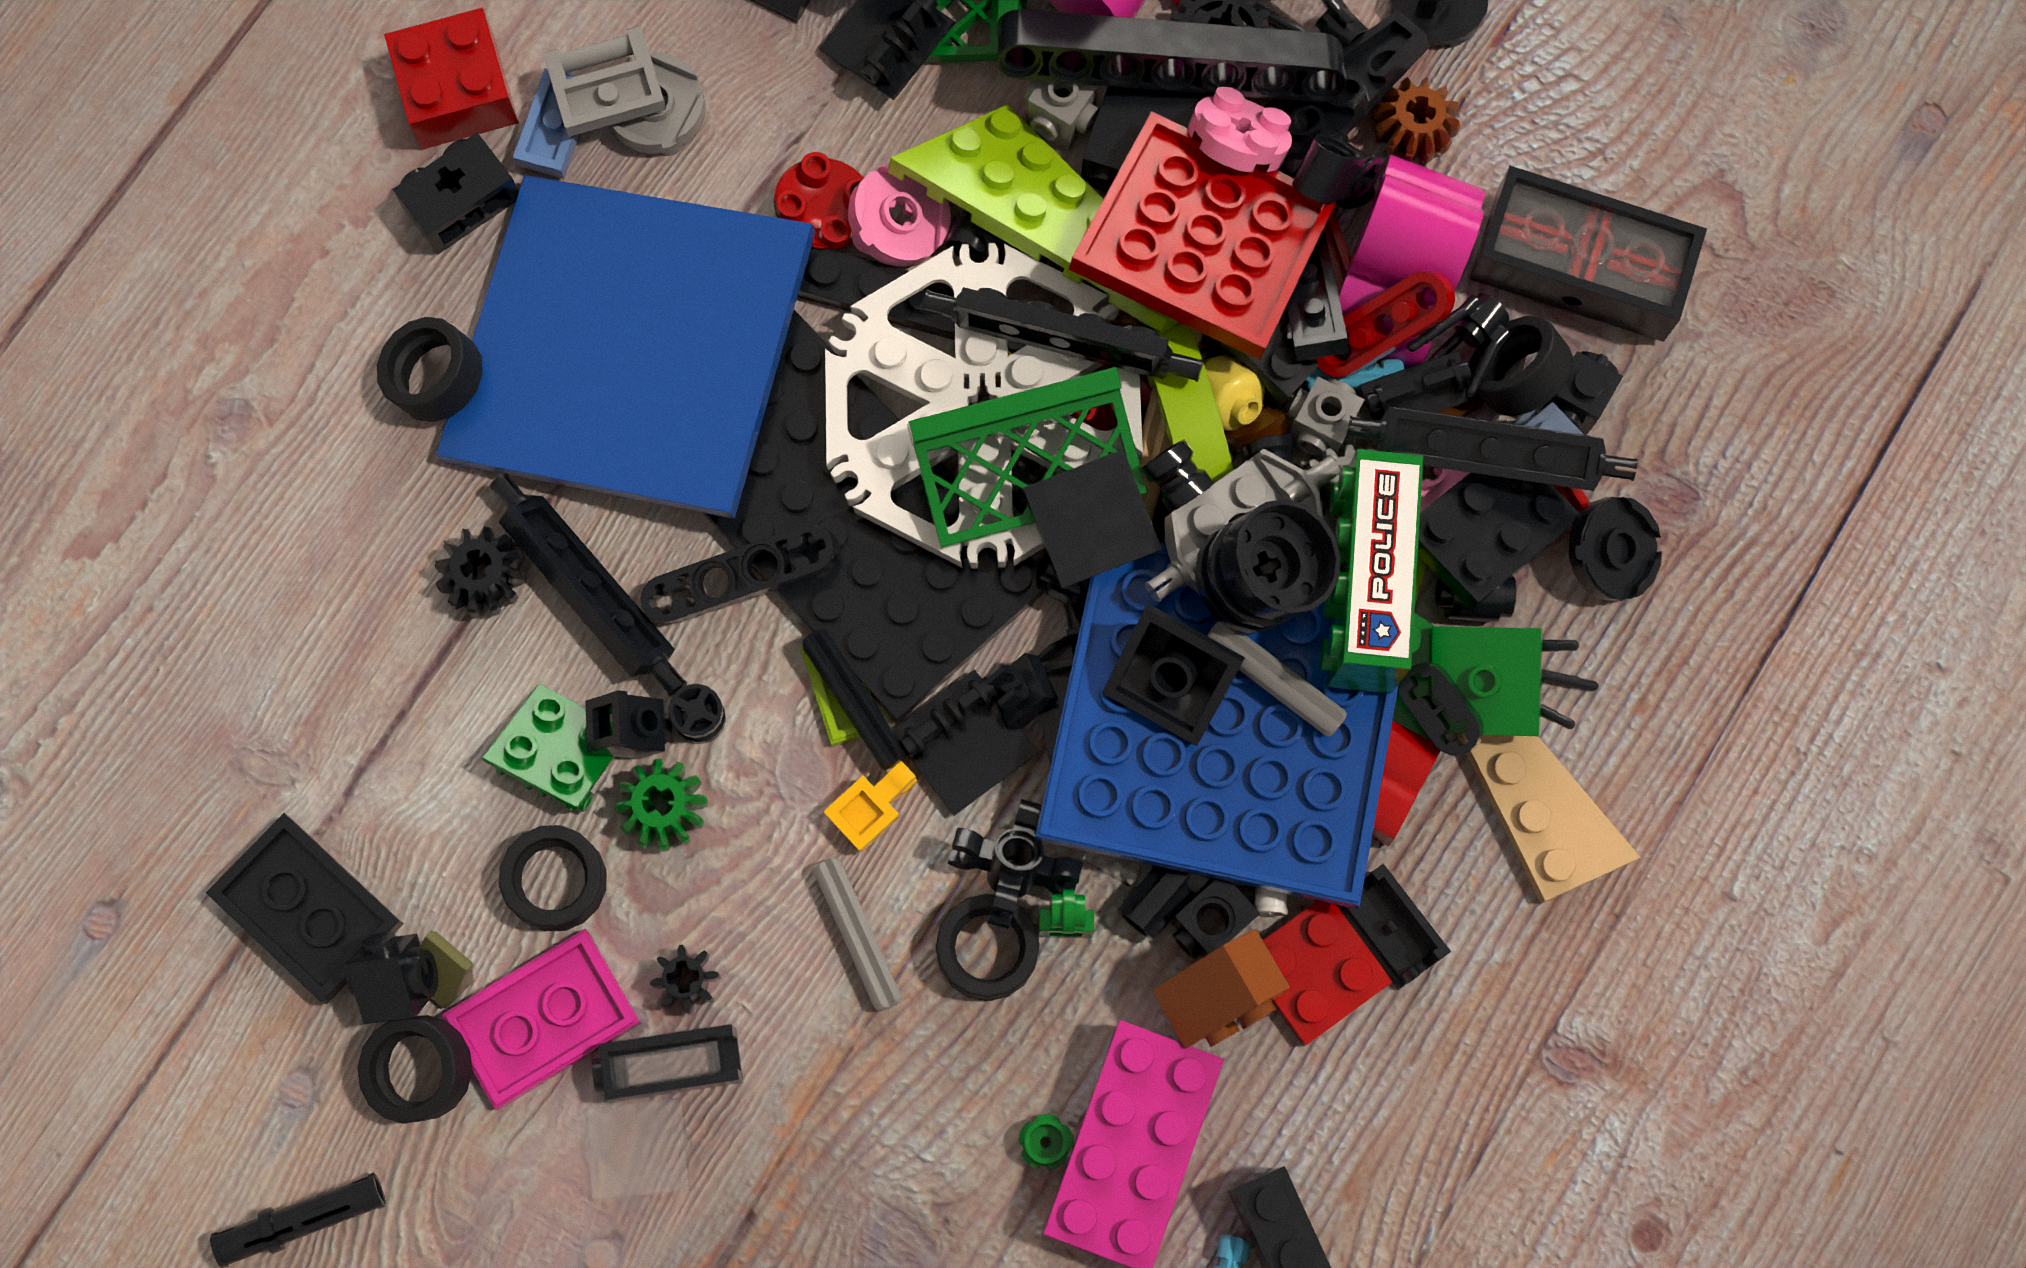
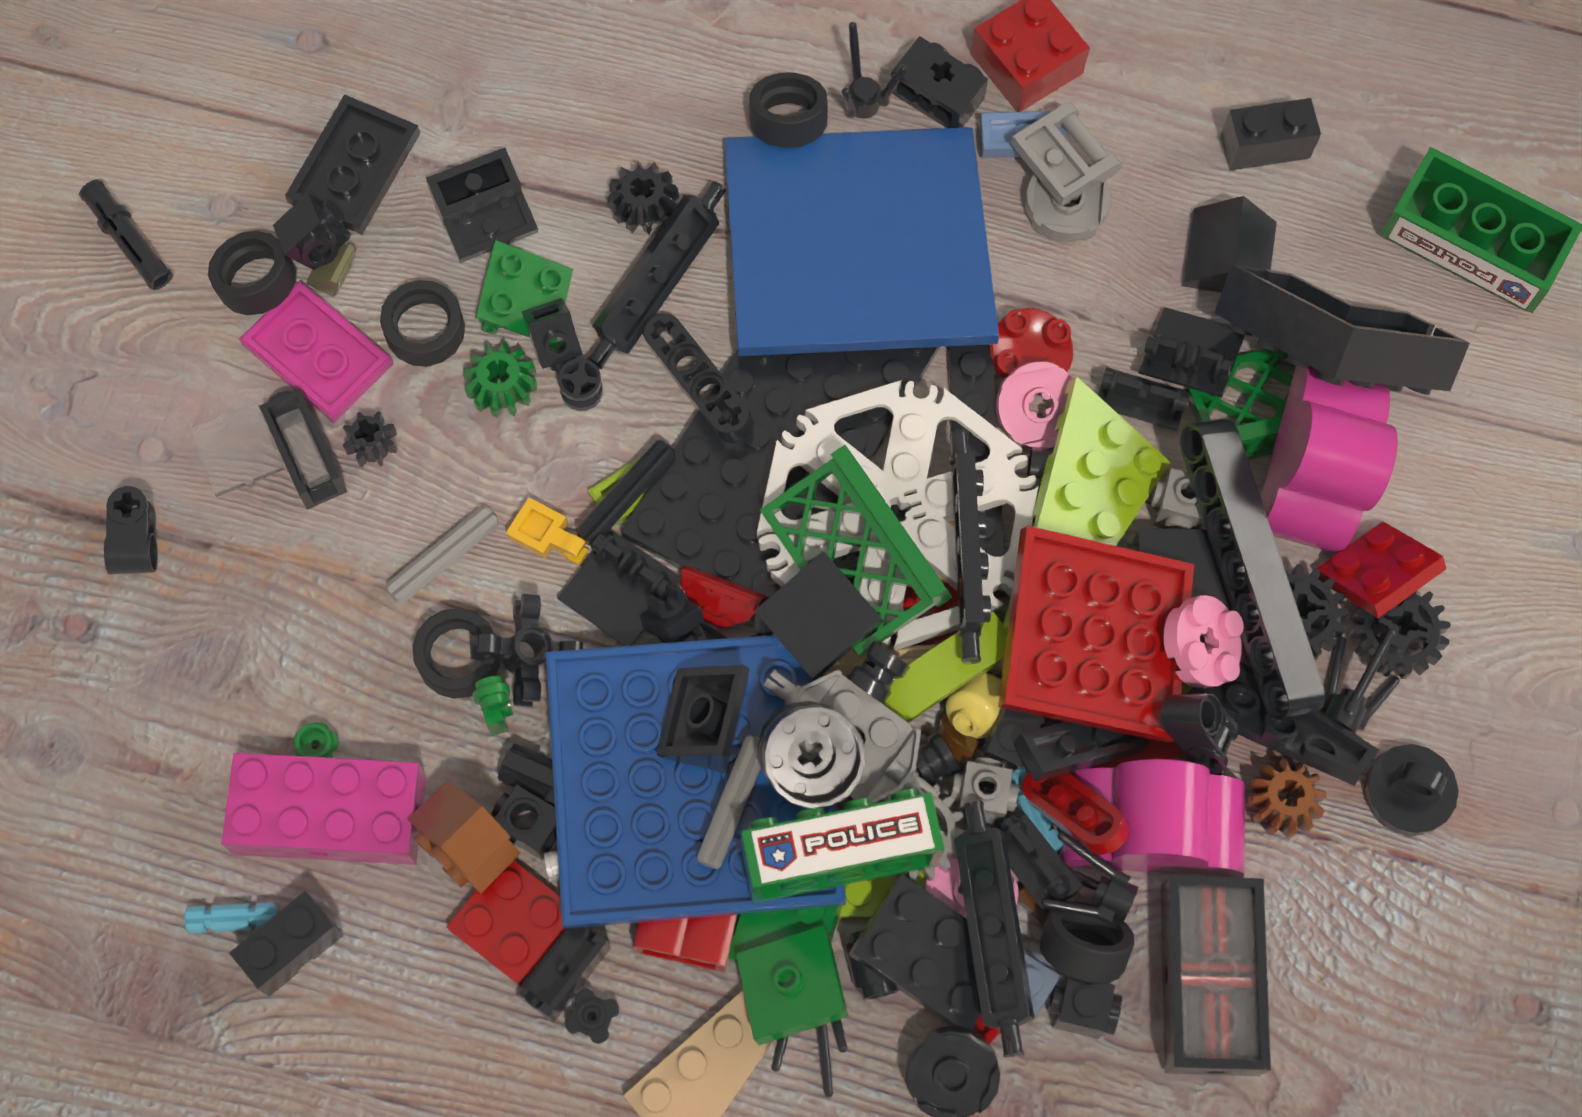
camera: 75 degrees right, 5 degrees down
(426, 763) = (481, 204): none -> black brick
(436, 277) = (864, 93): none -> black plant
(922, 105) = (1143, 399): none -> black hinge
(1017, 630) = (719, 599): none -> red plate
(1451, 700) = (754, 951): black beam -> none
(1464, 910) = (595, 1029): none -> black plate

